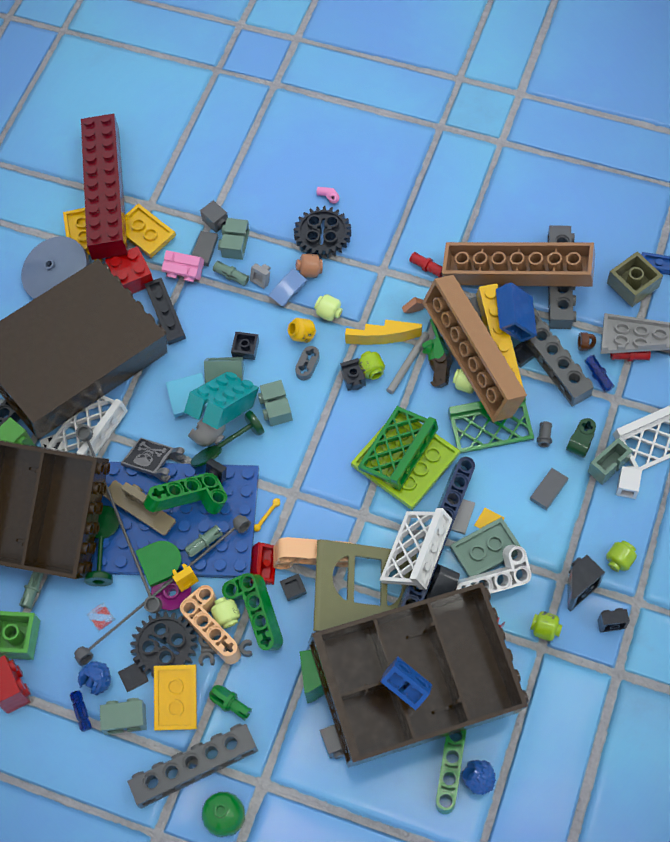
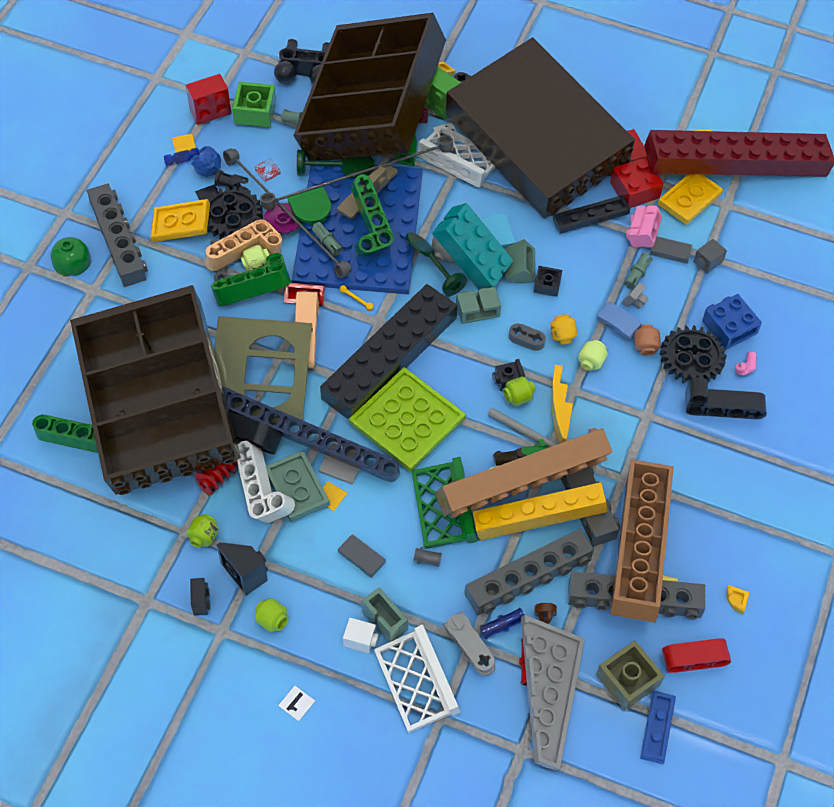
camera: 85 degrees right, 5 degrees down
(51, 264) = (640, 117): sand blue dish -> none
(57, 713) = (183, 142): none -> yellow sticker
(118, 716) = (169, 184): sand green piece -> none
(120, 649) = (230, 180): none -> black piece
(150, 457) = (422, 200): flat silver flag -> none
(185, 578) = (290, 222): yellow tile -> none
(217, 469) = (398, 247): black plate -> none
(229, 701) = (170, 261): green arm -> none
(234, 238) = (681, 274): sand green piece -> none
(287, 201) = (731, 321): none -> blue brick
(293, 587) = (275, 312): black plate -> none
(334, 477) = (389, 351): none -> black brick
(370, 210) = (723, 403): none -> black beam
(406, 683) = (128, 355): blue brick -> none
(410, 457) = (407, 417): green fence -> none
(426, 264) = (653, 455): red pin -> none
(428, 549) = (284, 414): white fence -> none
(479, 776) = (59, 455): blue piece -> none
(516, 312) = (570, 521): blue brick -> none
(523, 354) = (531, 543): black tile -> none
(550, 209) = (737, 598): none -> yellow tile
(581, 440) = (418, 594): dark green piece -> none
(606, 236) = (696, 655): none -> red beam
(623, 395) = (470, 643): none -> light grey piece

